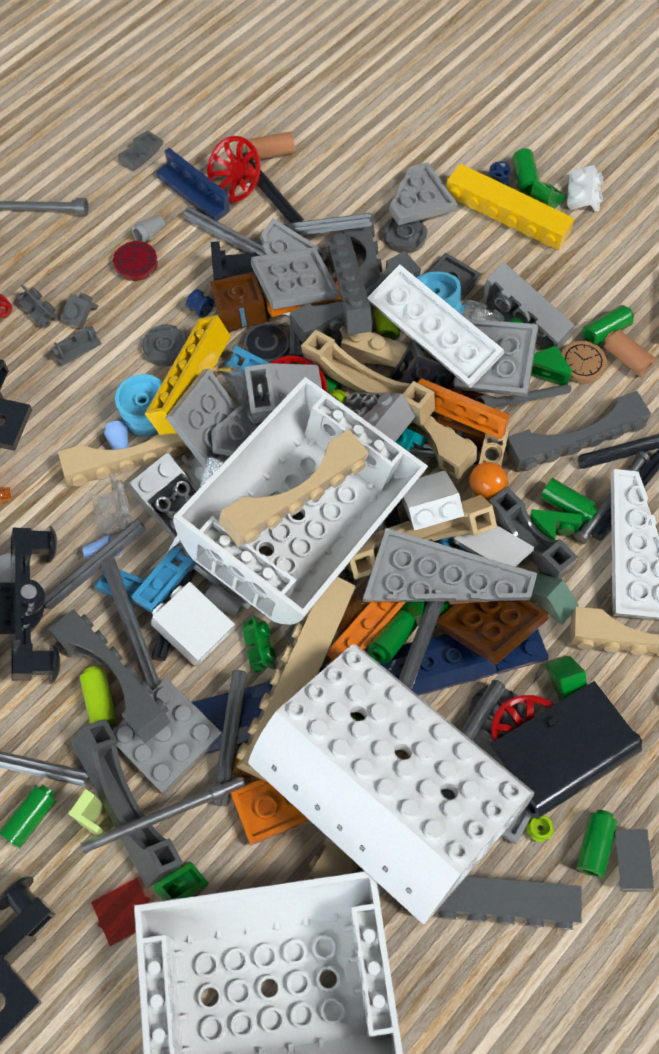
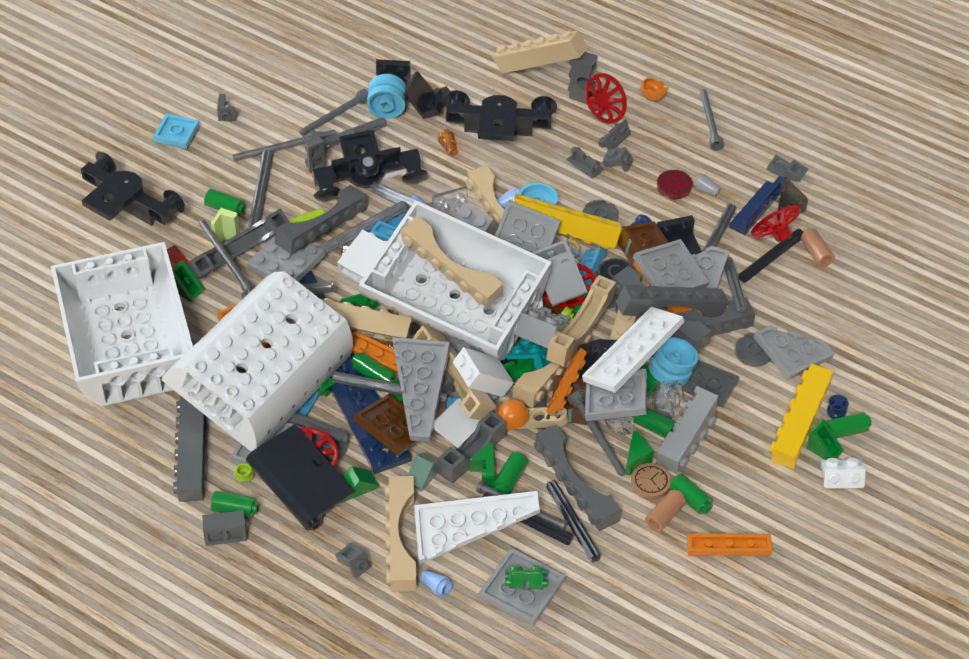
camera: 80 degrees right, 15 degrees down
(194, 154) = (790, 196): none -> clear smoke slope

